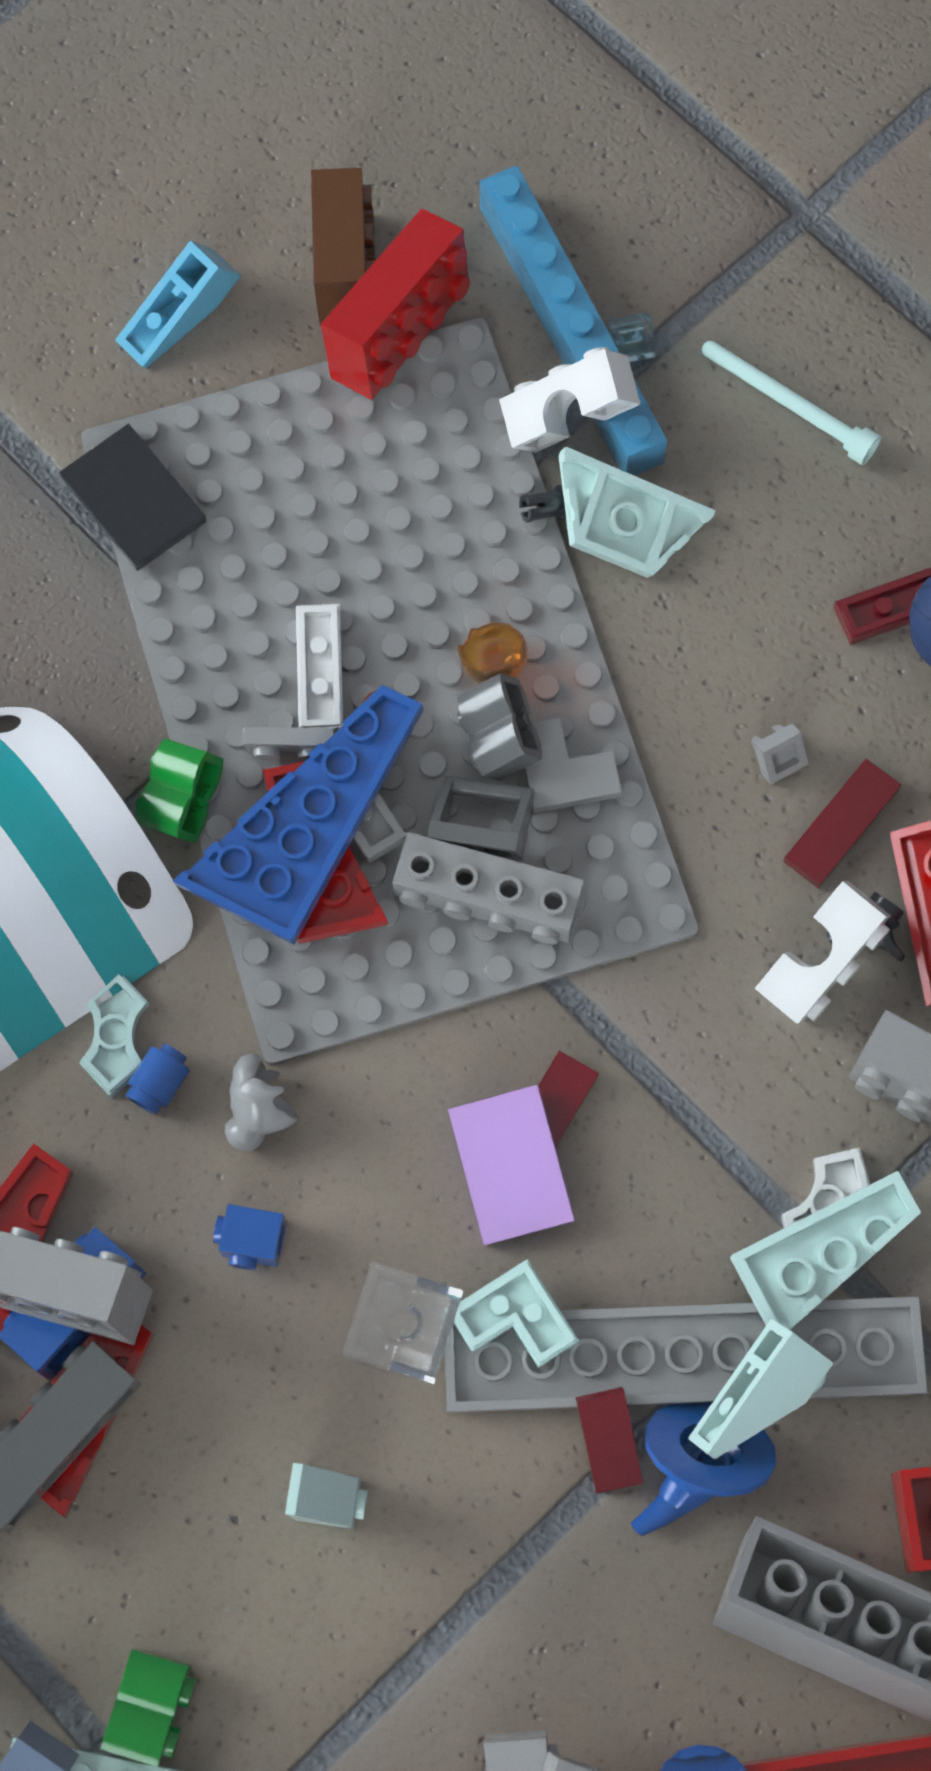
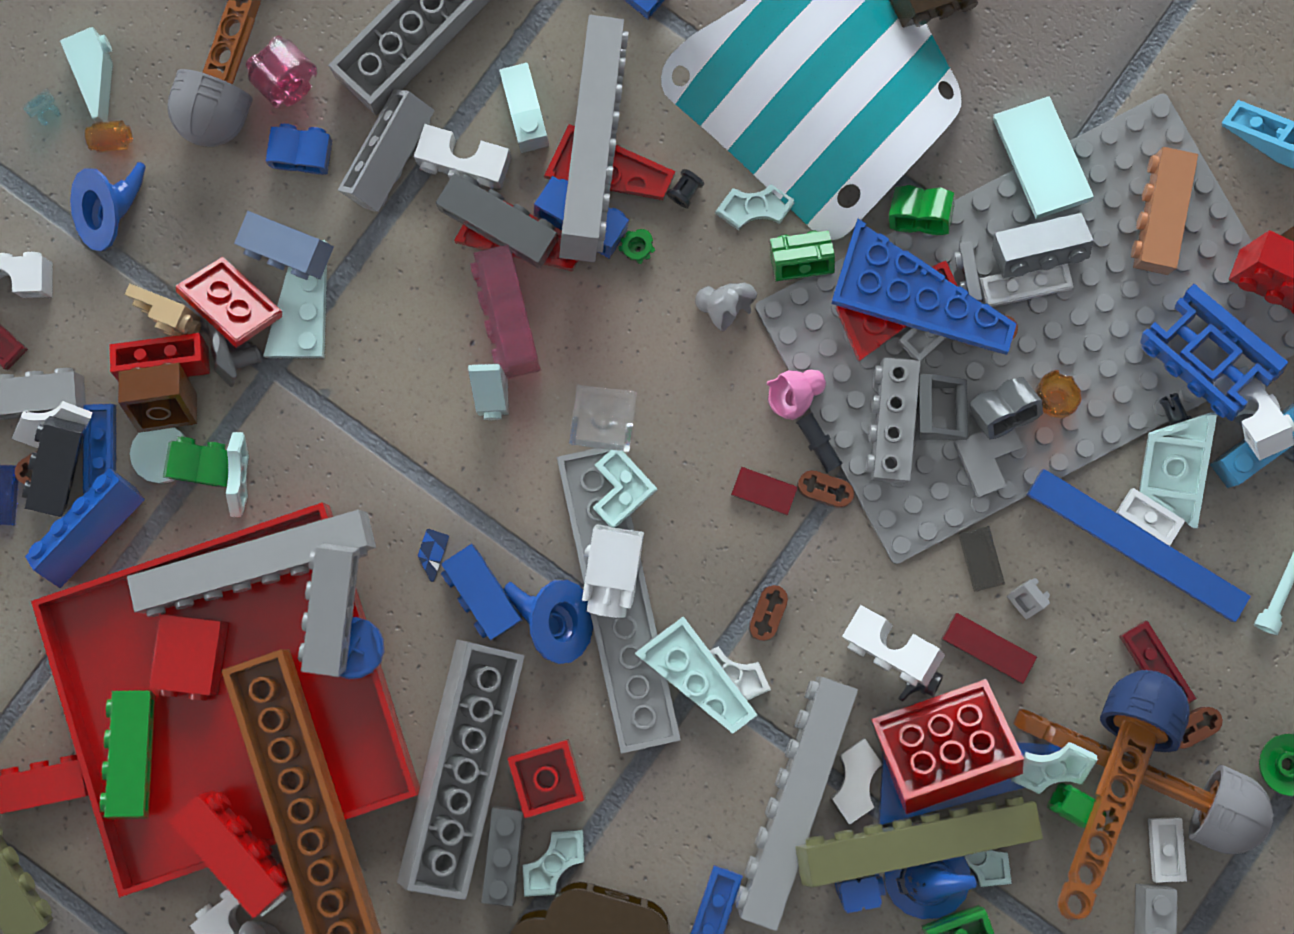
camera: 80 degrees right, 10 degrees up
(63, 1133) = (685, 188): none -> black bush
(127, 1218) = (639, 239): none -> green animal
(133, 497) = (1122, 136): black tile -> none
(138, 609) = (1043, 157): none -> light aqua tile
(147, 1708) = (354, 314): green brick -> none
(157, 1078) = (730, 238): blue brick -> none
(199, 1447) = (507, 313): none -> clear pink brick
(208, 976) = (802, 255): none -> green brick
(250, 1236) = (641, 316): blue brick -> none
(255, 461) = (1164, 210): none -> nougat brick
(271, 632) = (1042, 245): none -> brick
(416, 1027) = (794, 391): none -> bright pink piece
(456, 409) = (1228, 335): none -> blue fence
(497, 1006) = (819, 442): none -> black pin
(511, 1165) = (717, 469): lavender tile -> none
(560, 1005) = (822, 495): none -> copper beam
(560, 1645) = (432, 551): none -> dark blue sticker
(609, 1440) = (556, 559): dark red tile -> none
(642, 1574) = (480, 593): none -> blue brick
(645, 1348) = (612, 570): none -> white piece
(689, 569) = (1150, 516): none -> white plate
(710, 808) = (981, 558): none -> clear smoke tile
(724, 594) = (1138, 545): none -> blue tile
(736, 1139) = (775, 615): none -> copper beam
(766, 1386) = (604, 650): light aqua slope -> none

